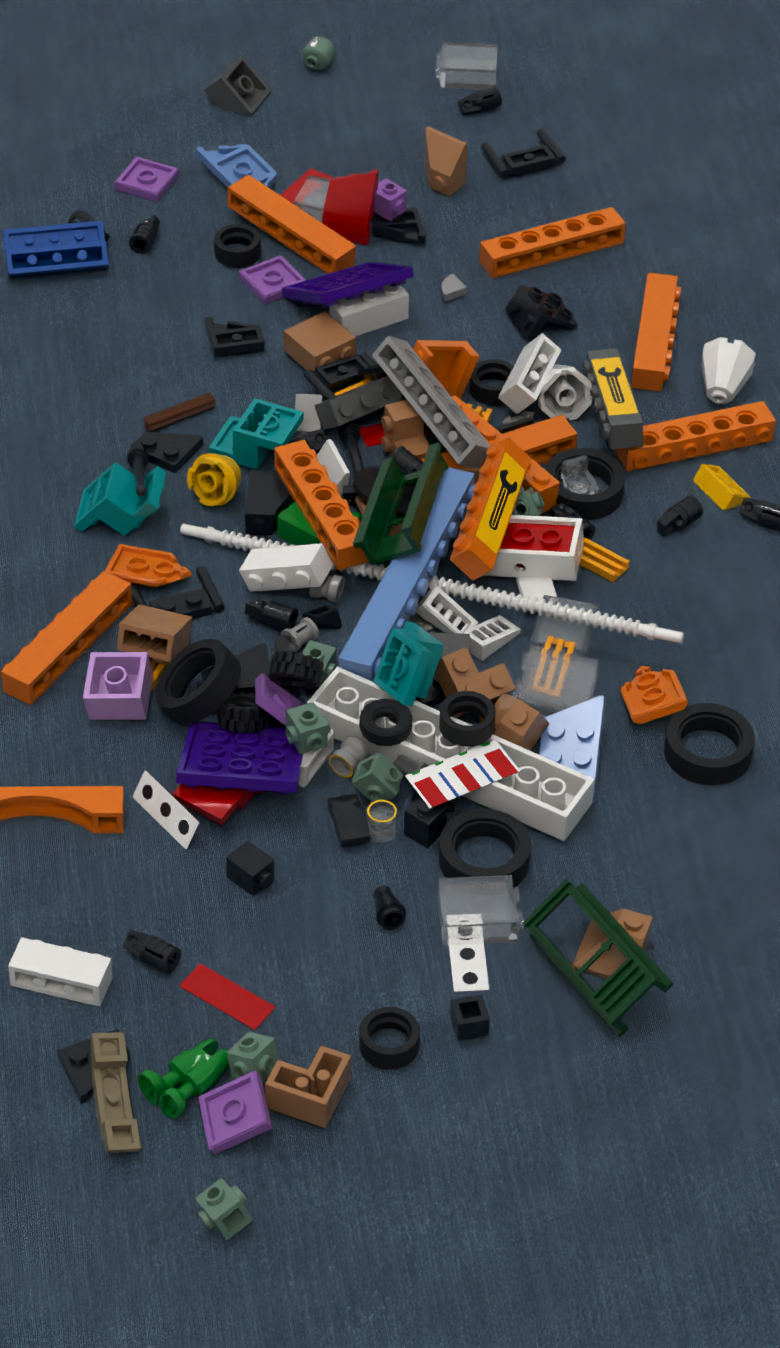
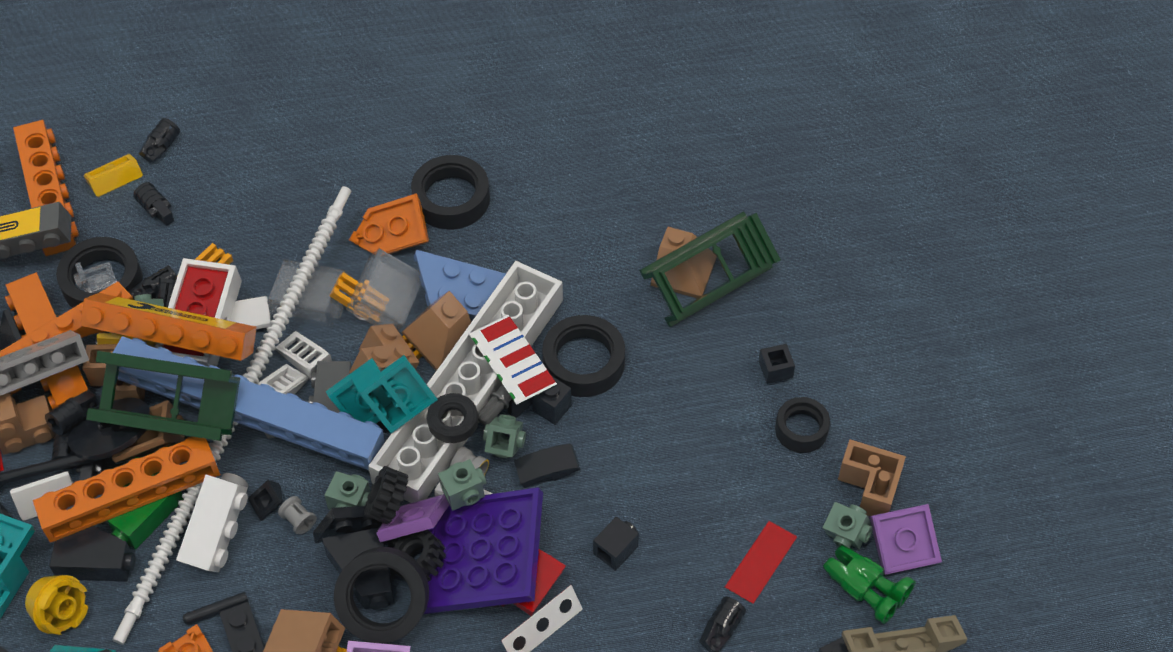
camera: 90 degrees left, 10 degrees up
(223, 1208) = (1019, 533): sand green brick -> none
(272, 613) = (264, 542): black hinge -> none
(382, 820) = (548, 430): clear wheel -> none
(389, 910) = (654, 429): black cone -> none
(465, 734) = (447, 332): black tyre -> none
(468, 967) = (692, 374): white sticker -> none
(478, 910) = (654, 360): clear brick -> none

